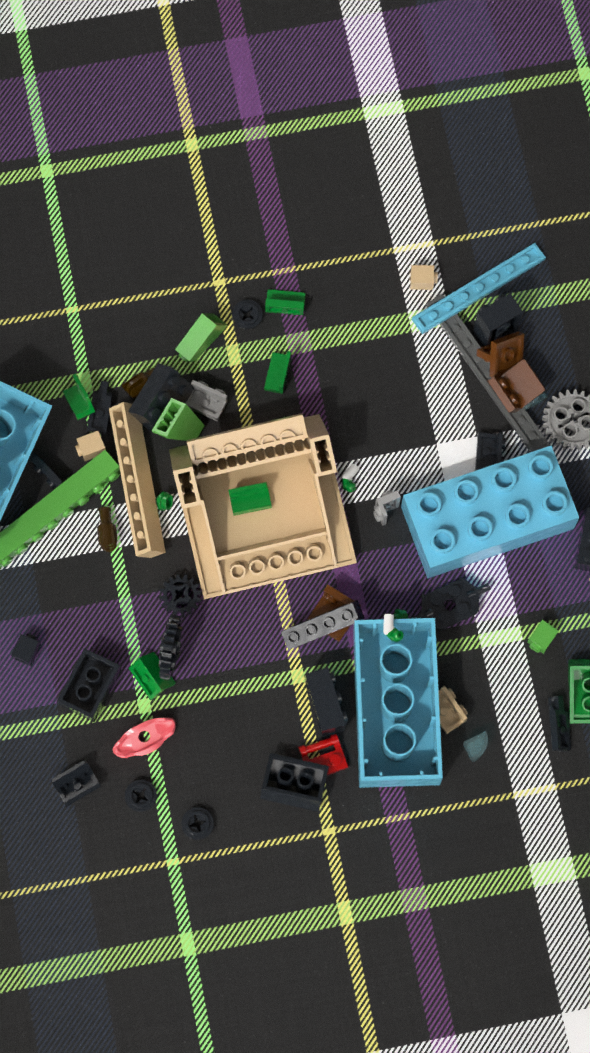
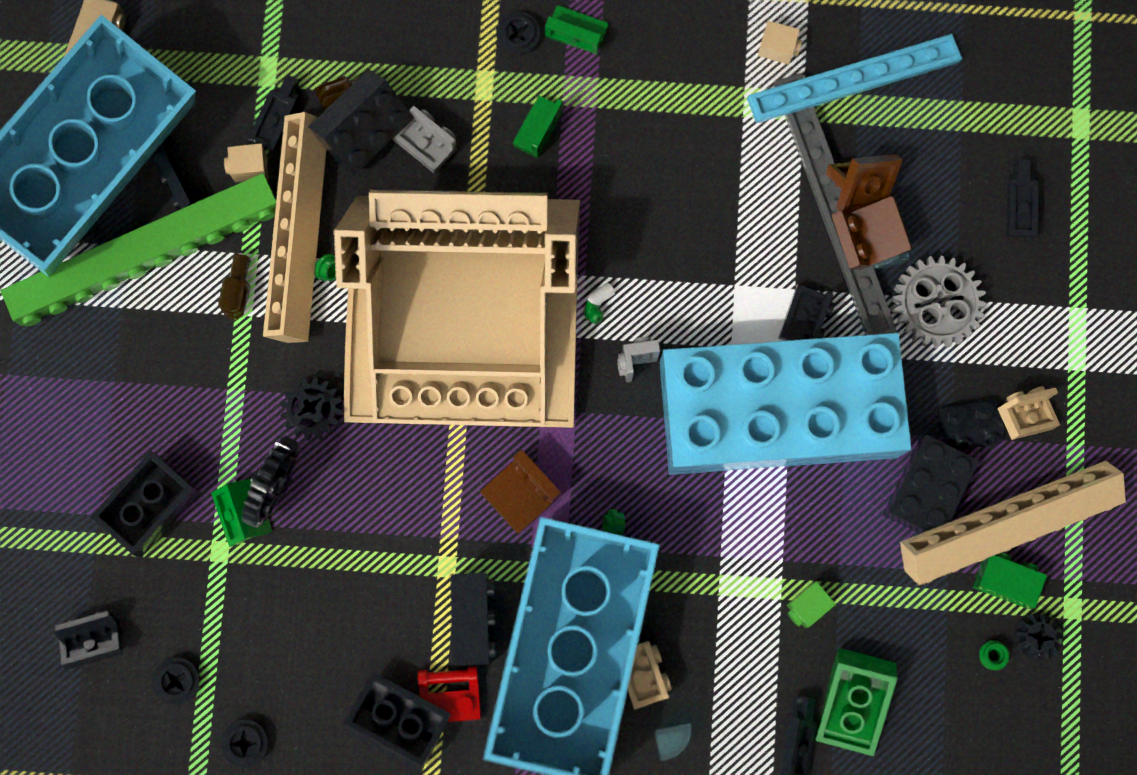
camera: 15 degrees right, 5 degrees up
(26, 649) = (74, 428): black brick -> none
(78, 399) = (248, 93): green panel -> none
(159, 731) = (183, 605): coral piece -> none
(178, 422) = (373, 161): bright green slope -> none
(200, 336) = (443, 47): bright green slope -> none
(250, 498) = (445, 296): green panel -> none
(322, 624) = (498, 506): brick -> none
(391, 631) = (588, 548): arm -> none
(461, 593) = (712, 512): black plate -> none
(497, 319) = (870, 129): black brick -> none

